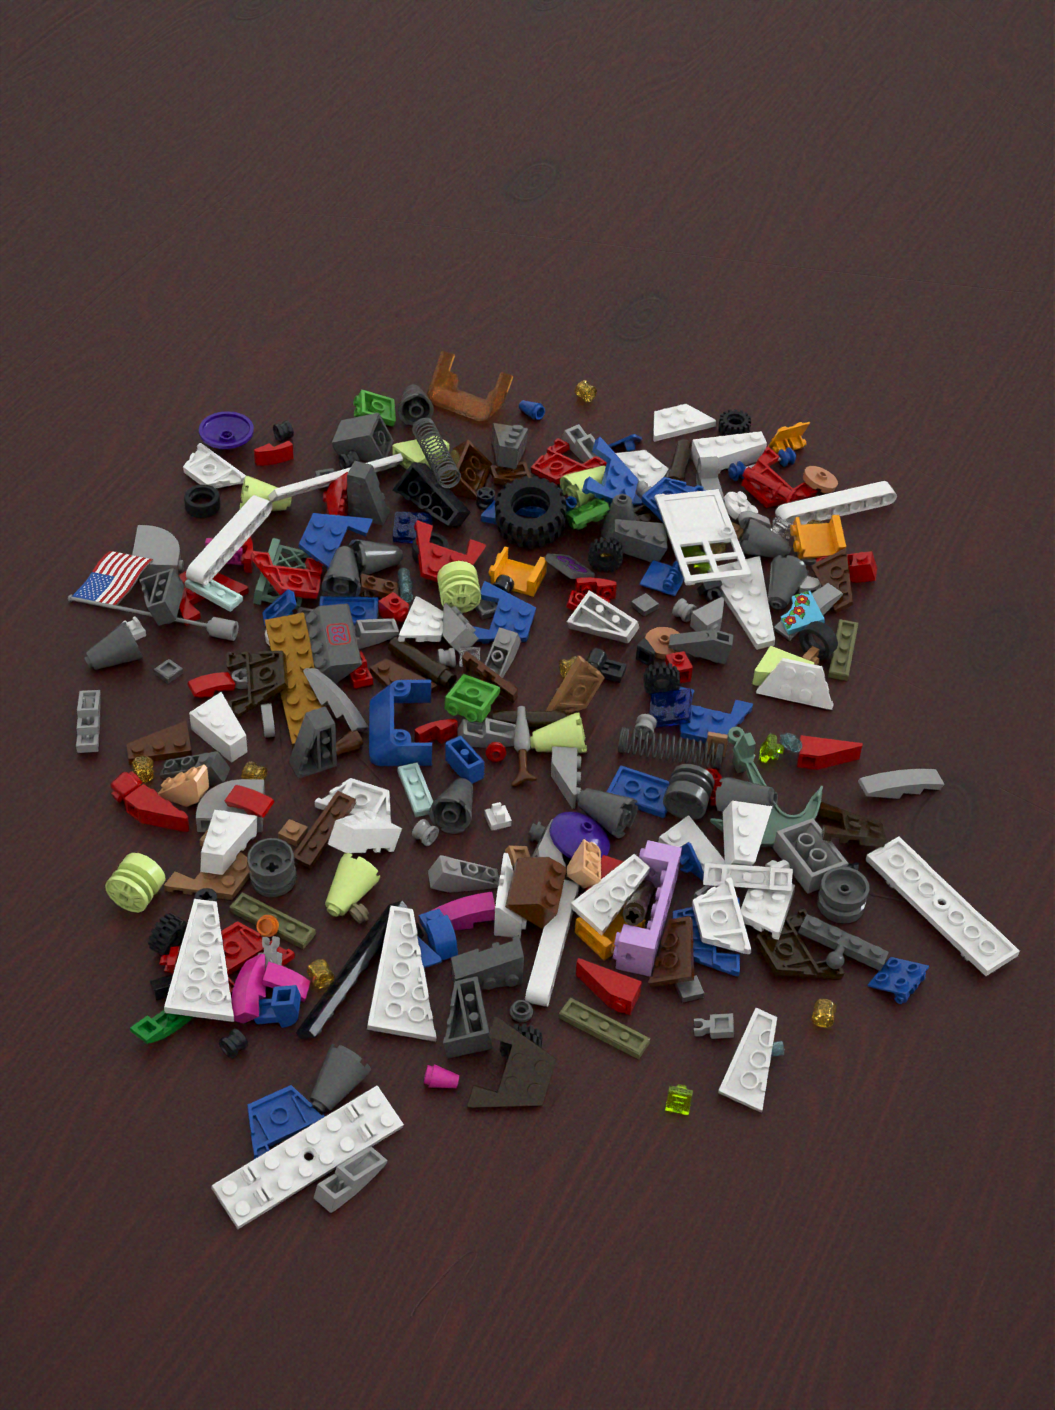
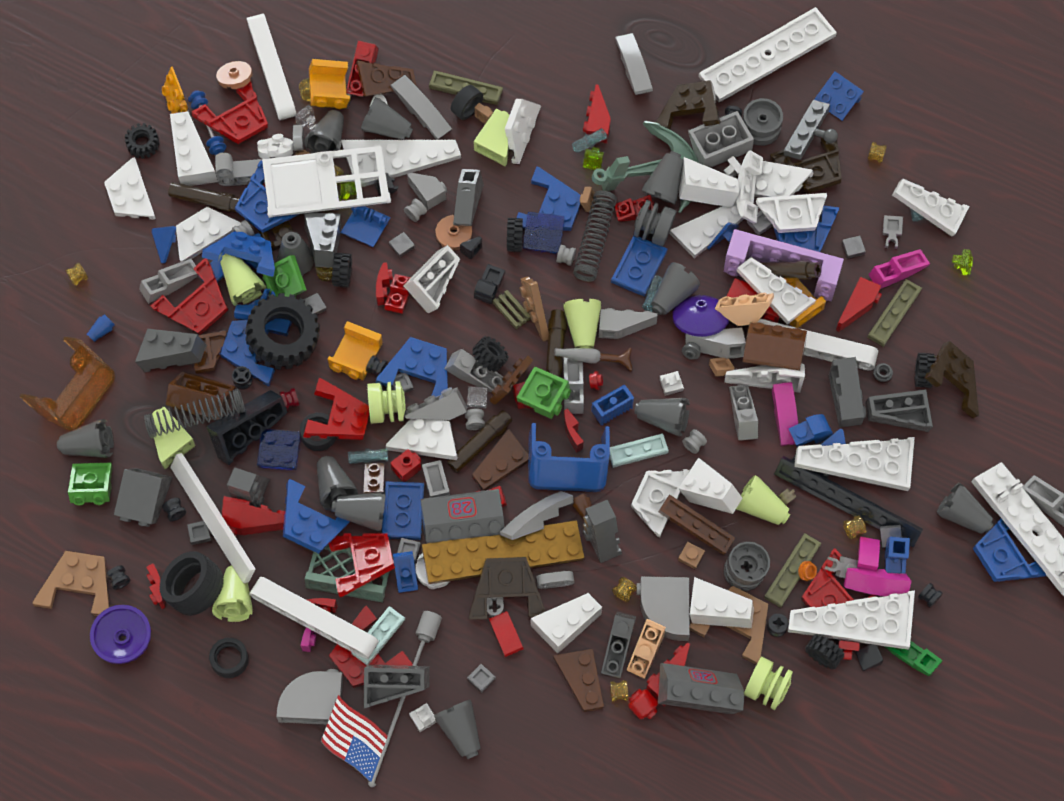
camera: 85 degrees left, 20 degrees up
(88, 721) = (552, 748): light grey slope -> none
(133, 820) = (700, 689): none -> dark grey slope
(211, 469) = (176, 651): white wing -> none
(250, 800) = (677, 584): red slope -> none
(269, 463) = (204, 591): none -> black tyre
(285, 408) = (77, 574): none -> medium nougat wing
(309, 1006) = (889, 531): none -> flat silver tile
(440, 1078) = (953, 436): dark pink cone -> none
(463, 528) = (290, 398): none -> dark red wheel
(507, 663) = (490, 353): none -> black tyre
(565, 665) = (489, 312): clear yellow wheel -> none
(569, 545) = (316, 303): none -> flat silver tile
(569, 566) = (354, 303): dark grey tile -> none
(663, 1030) = (898, 268): none -> dark pink slope
(676, 955) = (832, 246): reddish brown wing -> none
(682, 663) = (491, 222): red brick -> none
(776, 489) = (256, 111): red pin -> none
(802, 613) = (433, 109): medium azure tile -> none

